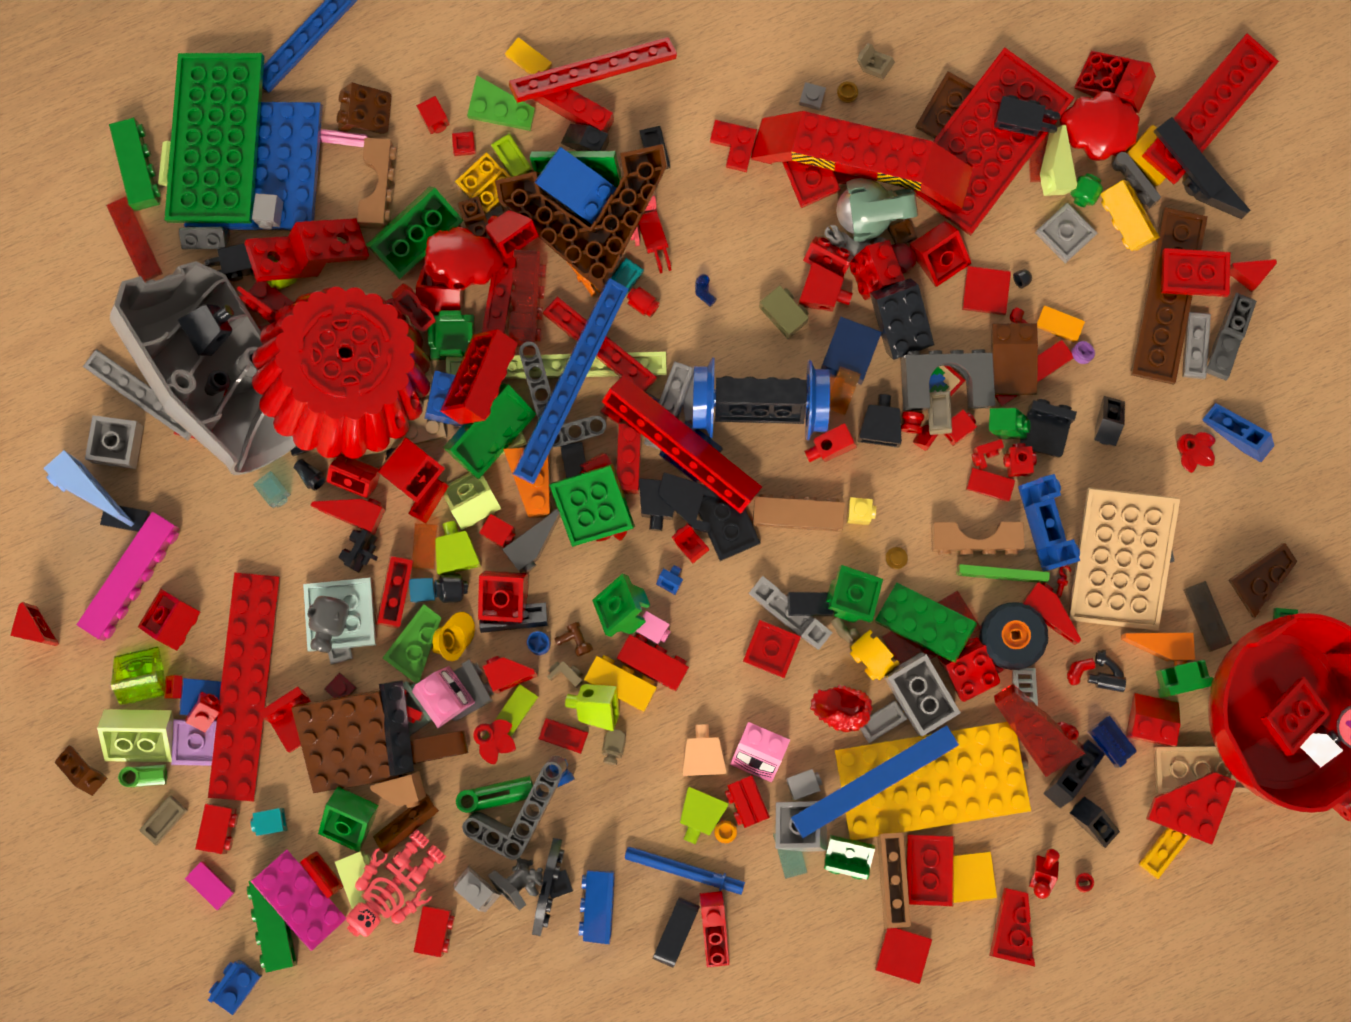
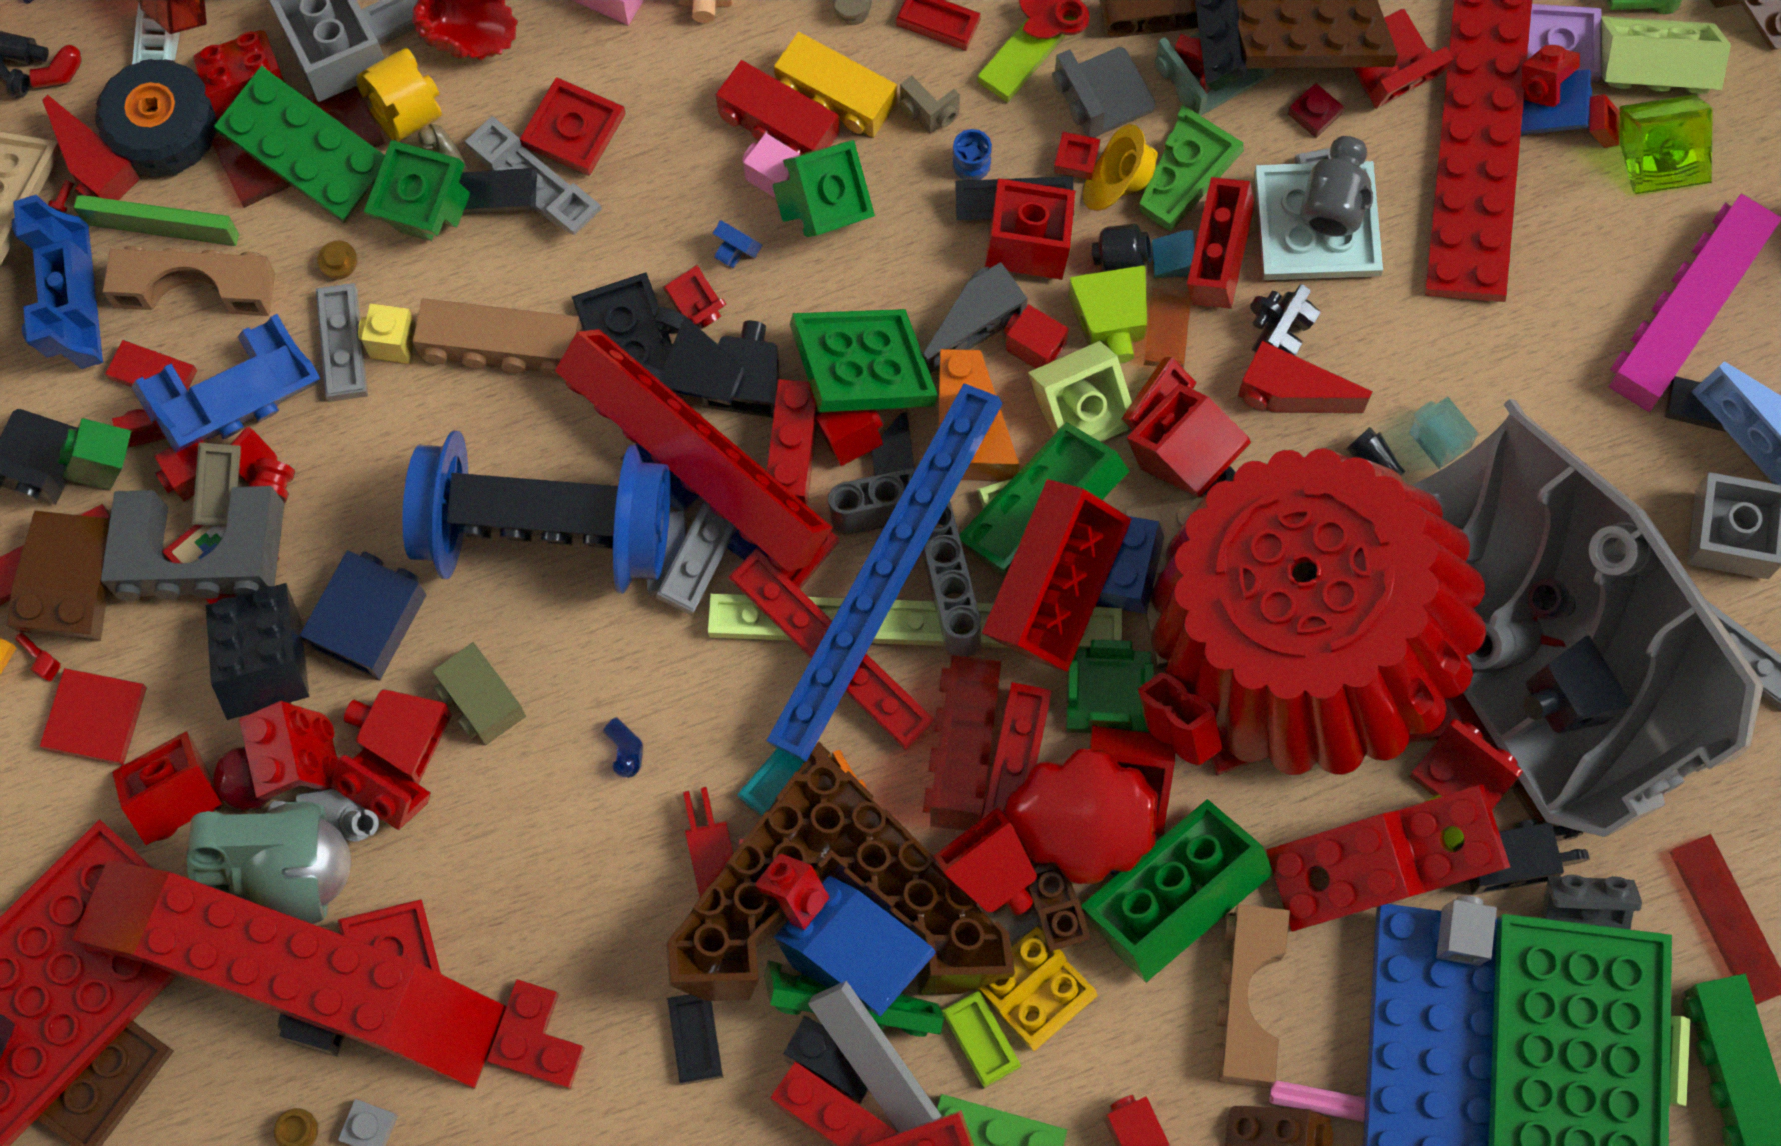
camera: 175 degrees left, 10 degrees down
(169, 620) = (1619, 227): red slope -> none
(353, 475) = (1289, 430): red brick -> none
(442, 696) = (1136, 69): bright pink slope -> none
(463, 143) = (1076, 1074): red tile -> none
(478, 647) = (1077, 155): none -> red plate
(506, 673) = (1024, 99): red slope -> none
(562, 132) = (873, 1057): none -> light grey tile
(575, 633) = (896, 146): reddish brown piece -> none
(596, 705) = (868, 35): lime torso -> none
(607, 204) = (795, 888): none -> red bracket
(643, 301) = (742, 730): red brick -> none
(841, 443) = (402, 434): red torso -> none
(843, 390) = (382, 544): clear orange tile -> none
(881, 424) = (328, 480): black torso -> none
(887, 510) = (340, 344): none -> light grey tile
(938, 465) = (232, 397): none -> blue bracket
(1016, 467) = (89, 395): red brick -> none
(1022, 278) = (20, 732): black hinge -> none

